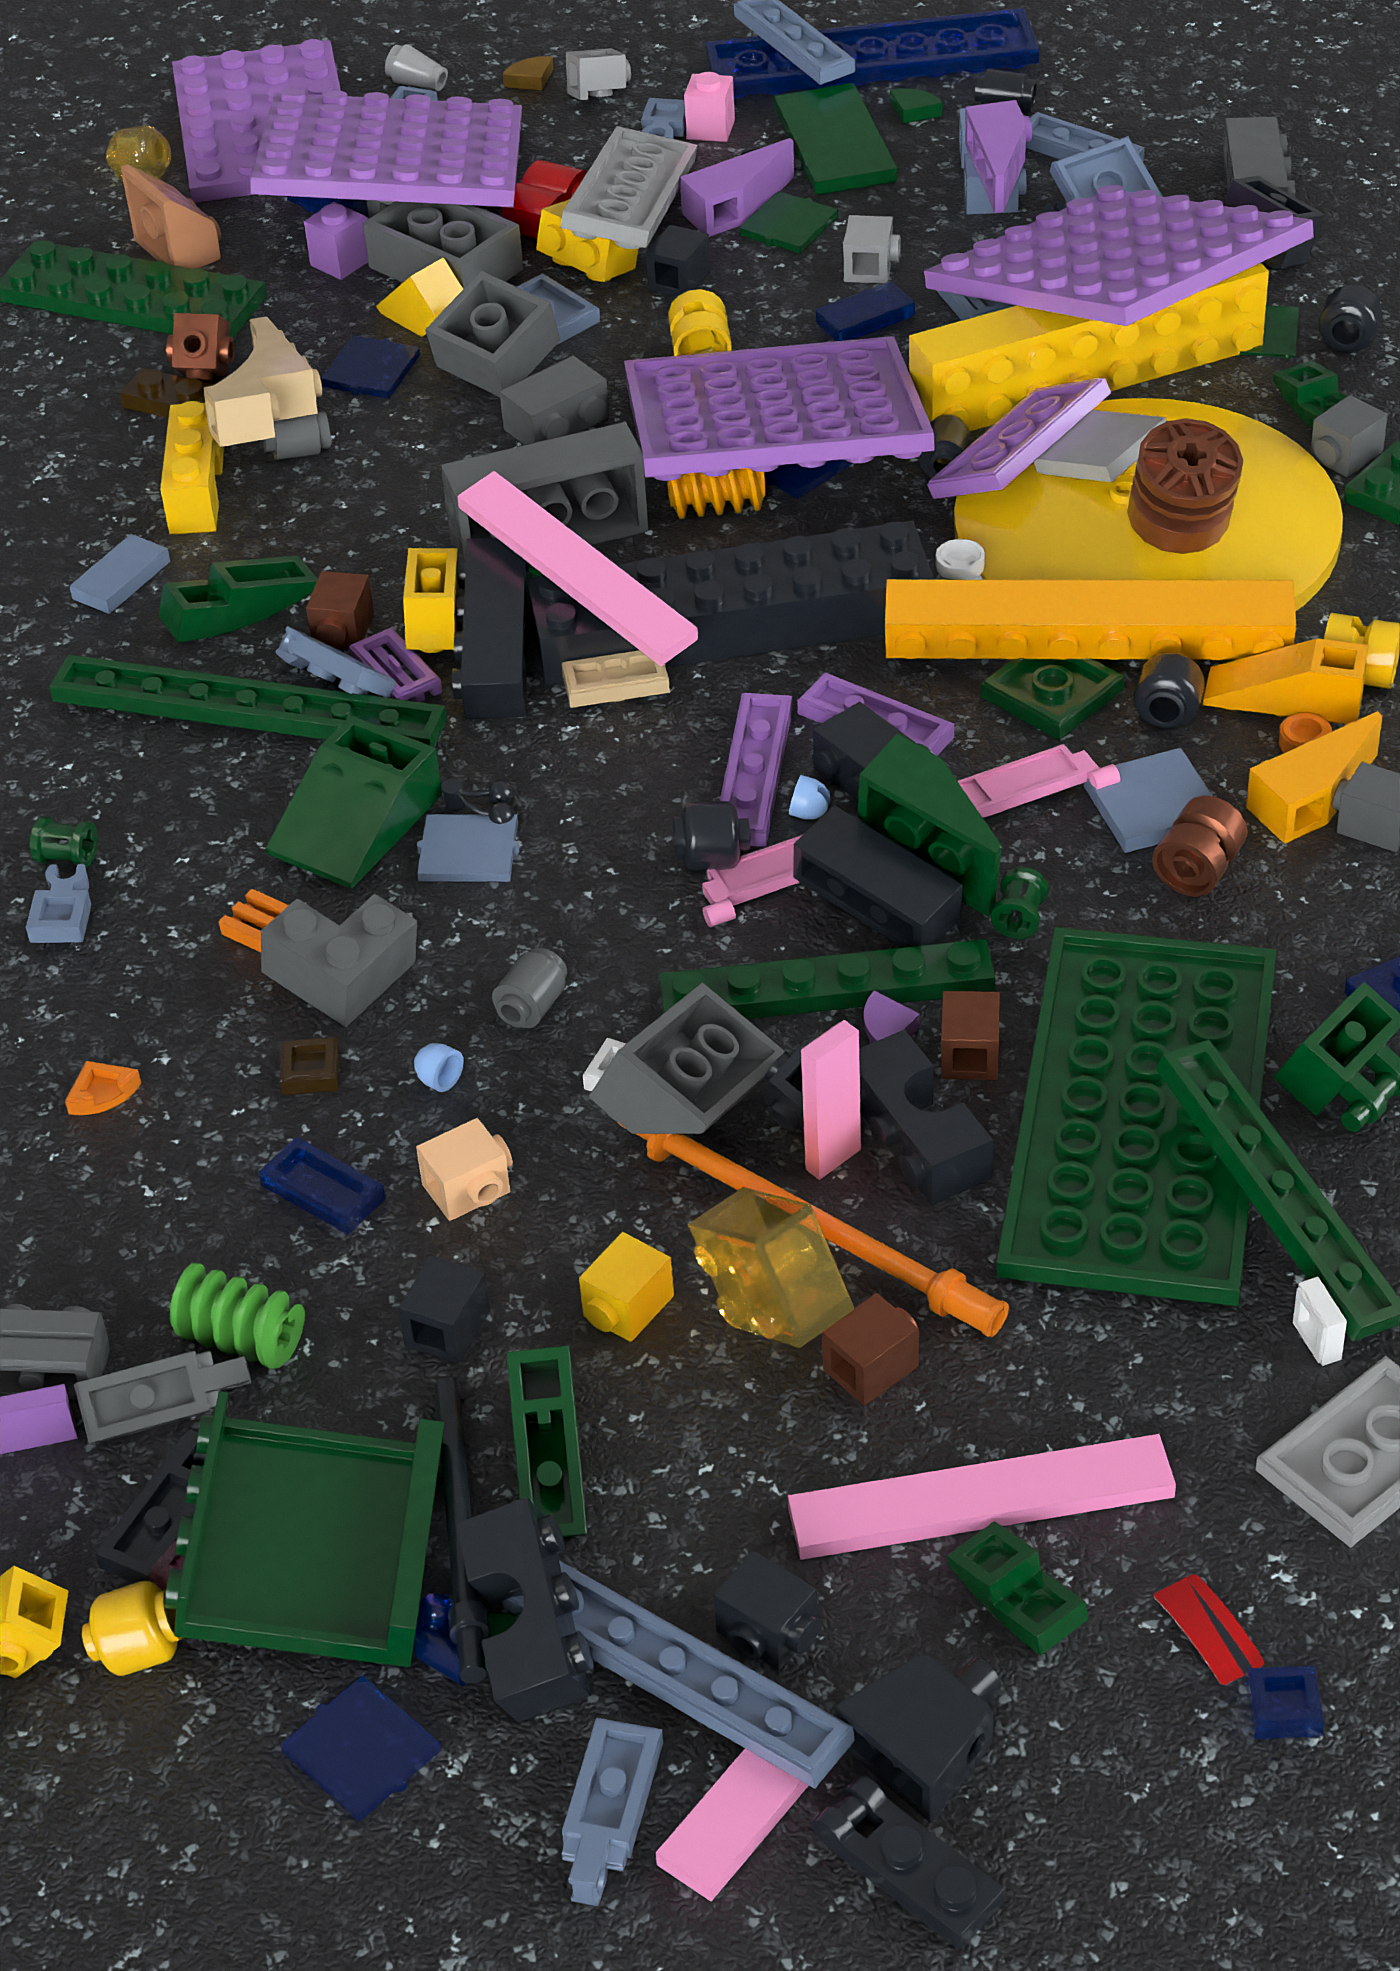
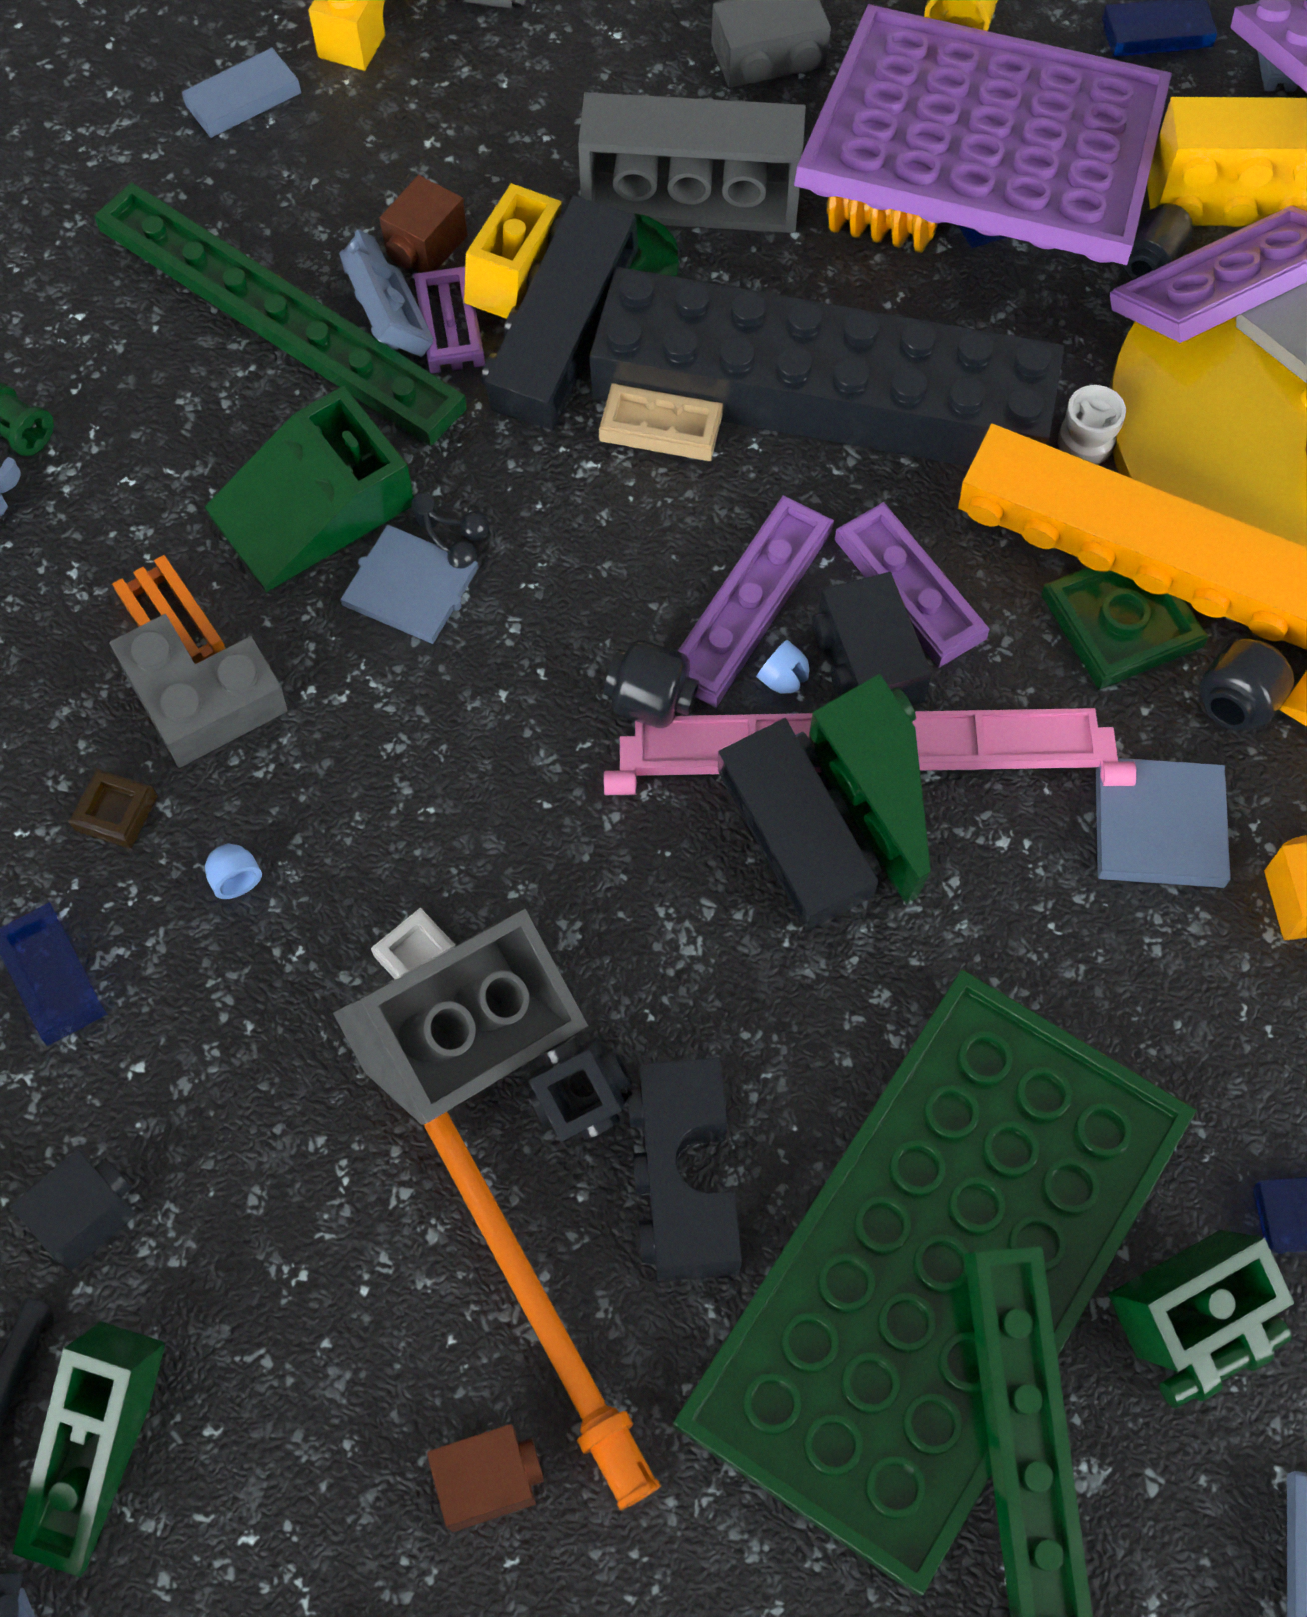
camera: 20 degrees right, 20 degrees up
(234, 596) = (332, 166): dark green slope -> none
(464, 1168) = (187, 1027): light nougat brick -> none
(530, 988) = (370, 809): dark grey brick -> none
(578, 568) = (662, 285): bright pink tile -> none
(626, 1287) = (267, 1268): yellow brick -> none
(770, 1267) = (399, 1351): clear yellow brick -> none
(831, 1099) = (579, 1140): bright pink tile -> none
(839, 979) = (689, 928): dark green plate -> none
(888, 1017) = (723, 1015): medium lavender tile -> none
(970, 1035) = (799, 1077): copper brick -> none
(1012, 900) = (948, 892): dark green bush -> none
(1199, 845) = (1184, 916): copper wheel -> none

